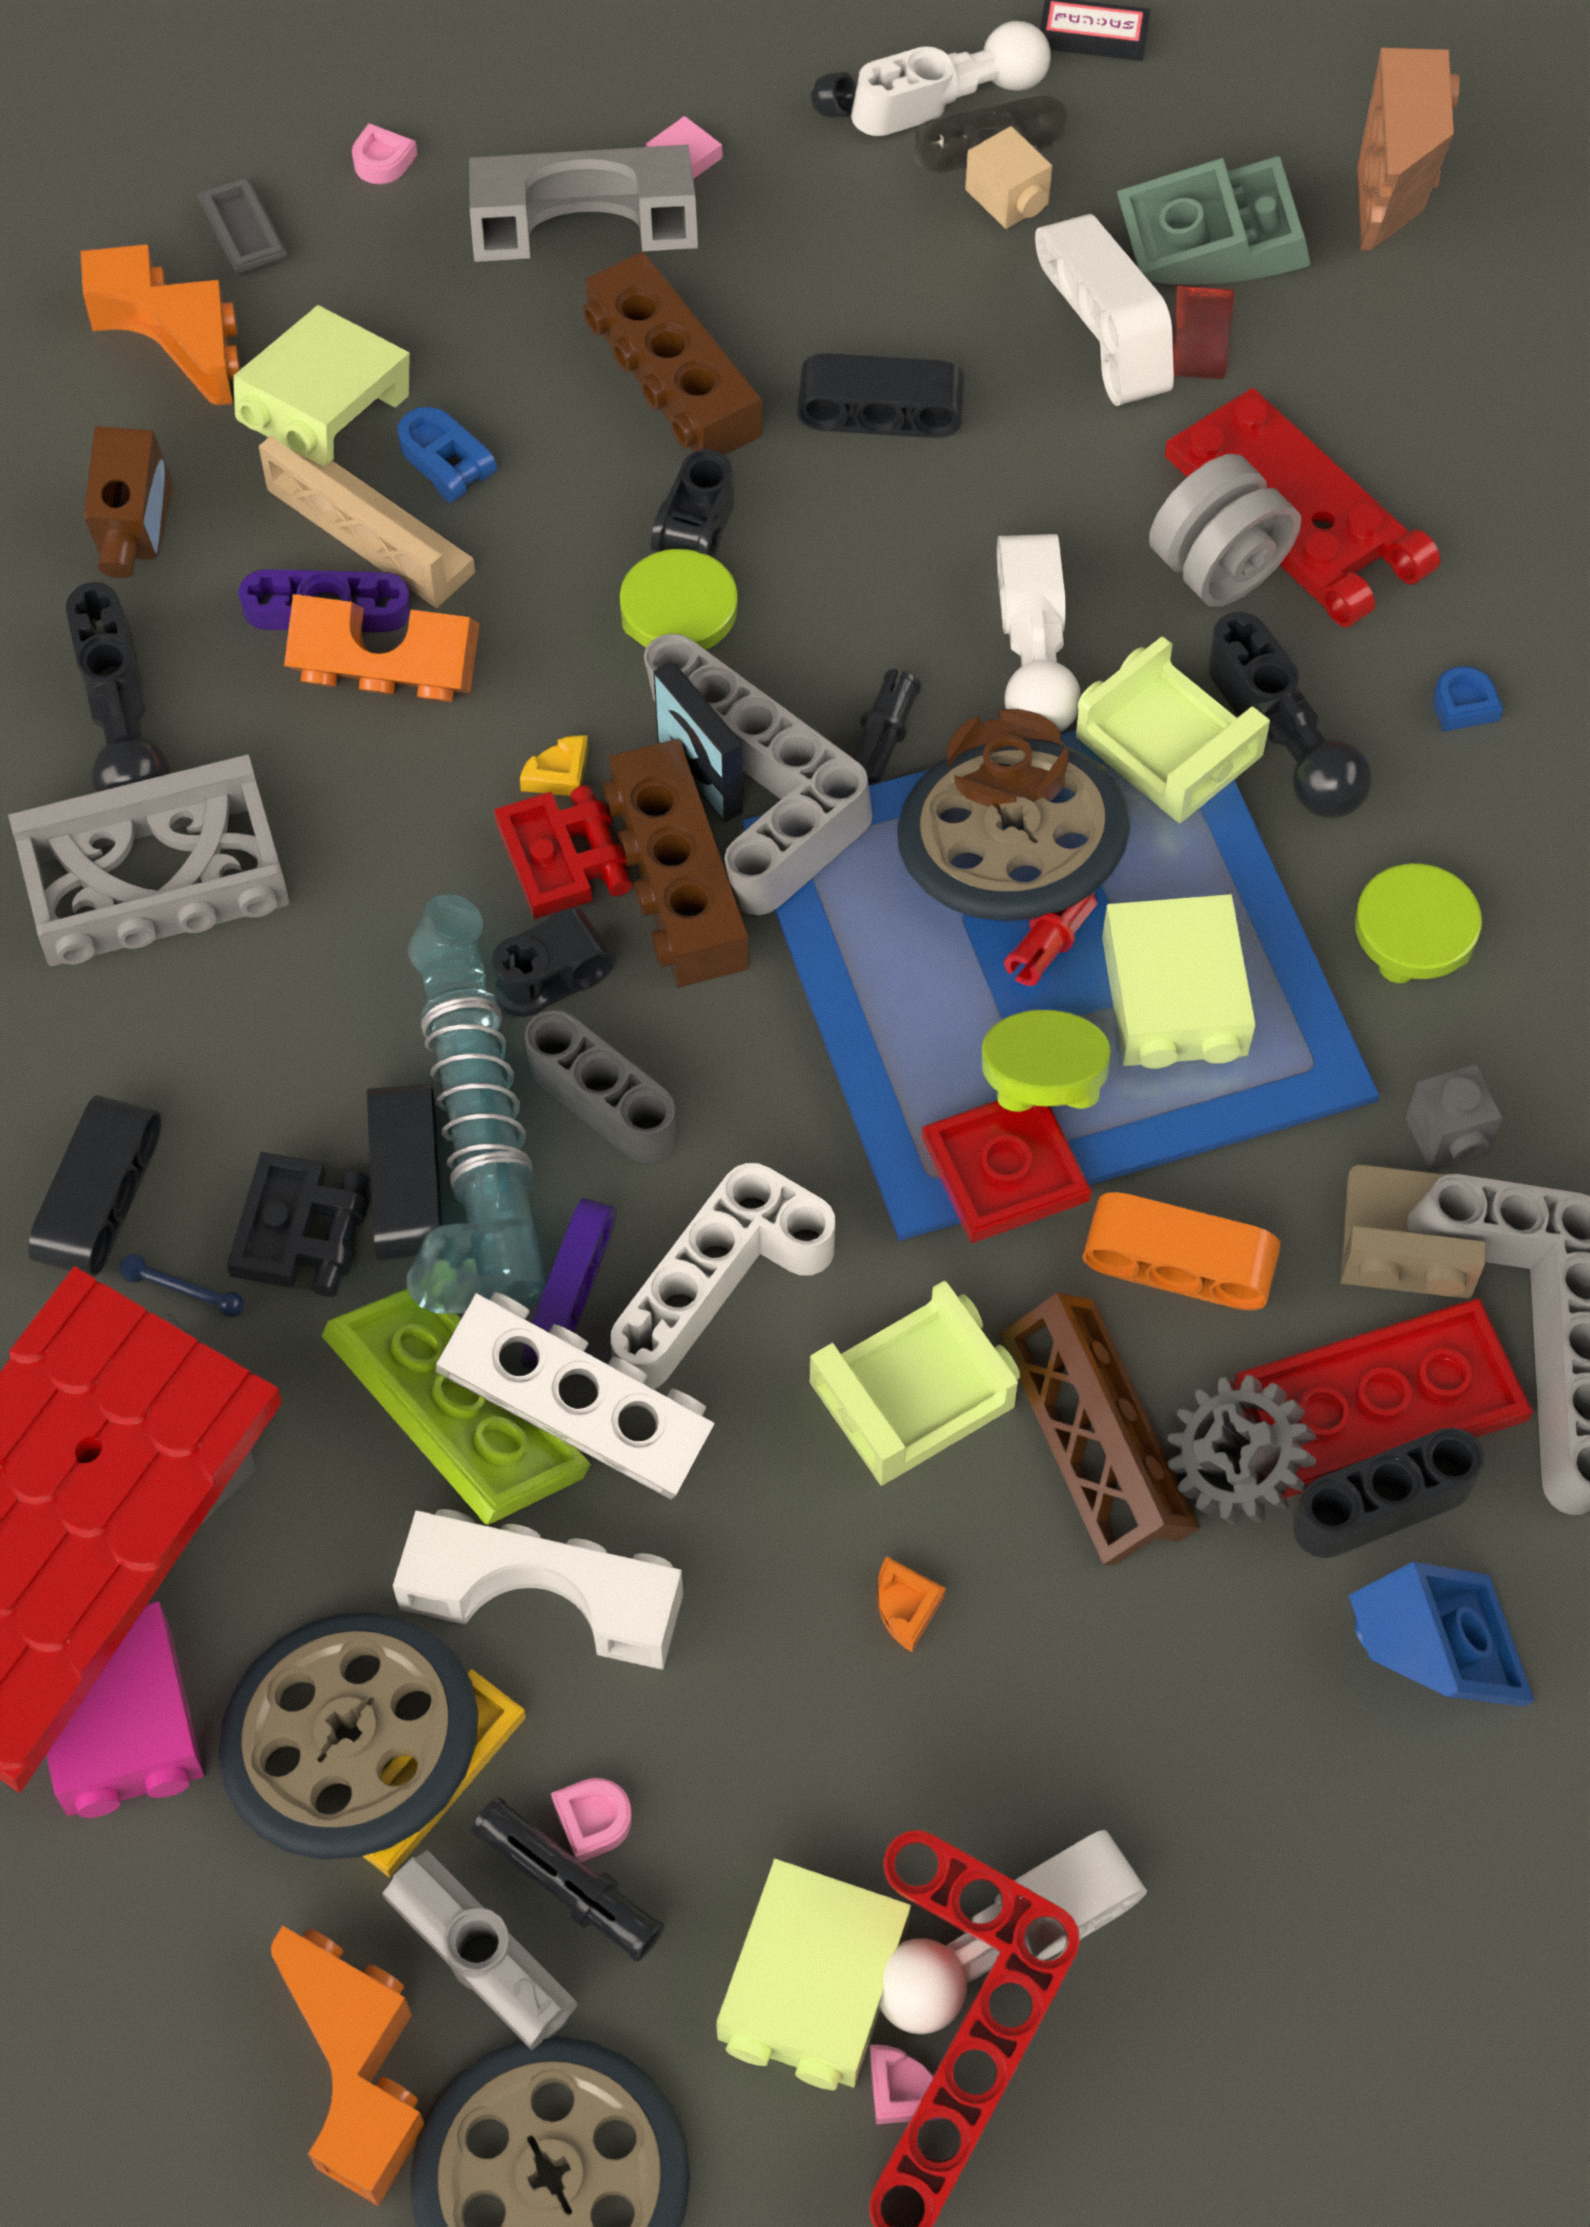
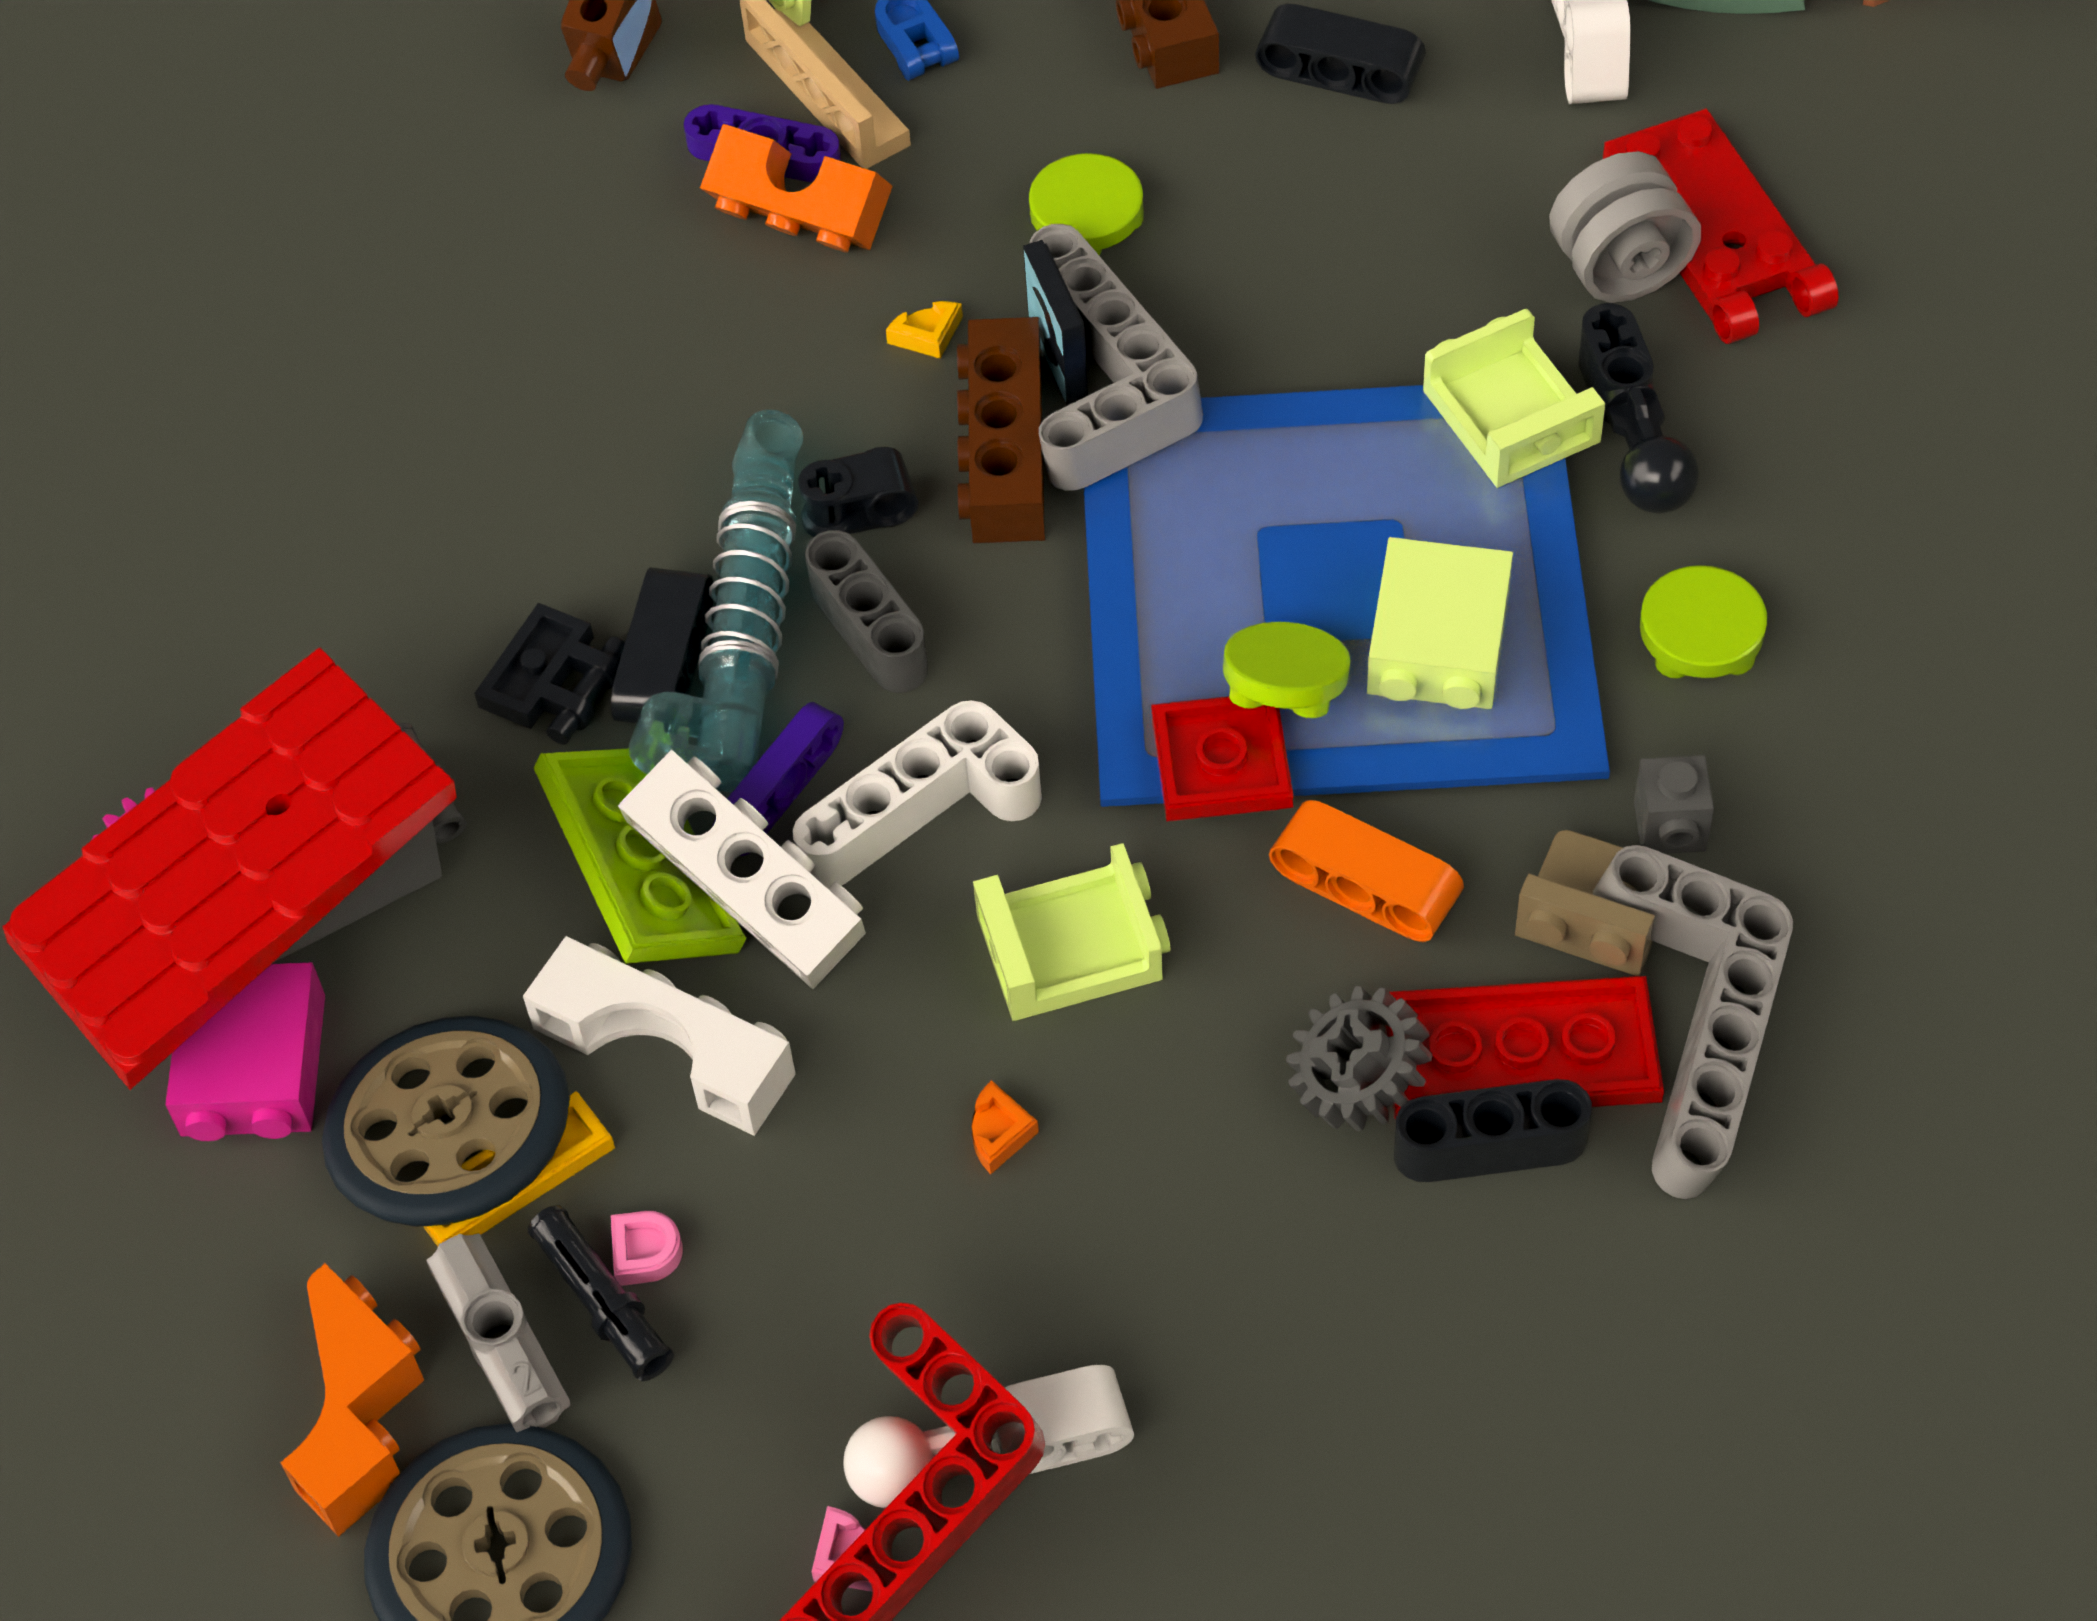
camera: 20 degrees right, 5 degrees down
(95, 1185) = (384, 601): black beam -> none
(116, 698) = (547, 146): black beam -> none
(117, 816) = (564, 373): light grey fence -> none
(135, 1269) = (398, 684): dark blue hinge -> none
(545, 857) = (885, 401): red plate -> none
(694, 514) = (1130, 119): black piece -> none
(811, 1975) = (788, 1427): yellowish green brick -> none
(885, 723) = (1242, 346): black axle -> none
(986, 889) = (1362, 505): wedge -> none
(1002, 784) = (1342, 423): reddish brown plate -> none
(1035, 620) = (1417, 278): white beam -> none
(1047, 937) = (1334, 556): red axle -> none
(1119, 1423) = (1248, 1002): reddish brown fence -> none
(1201, 331) = (1671, 49): clear red panel -> none
(1442, 1632) = (1502, 1267): blue slope -> none
(1466, 699) = (1824, 430): blue tile -> none

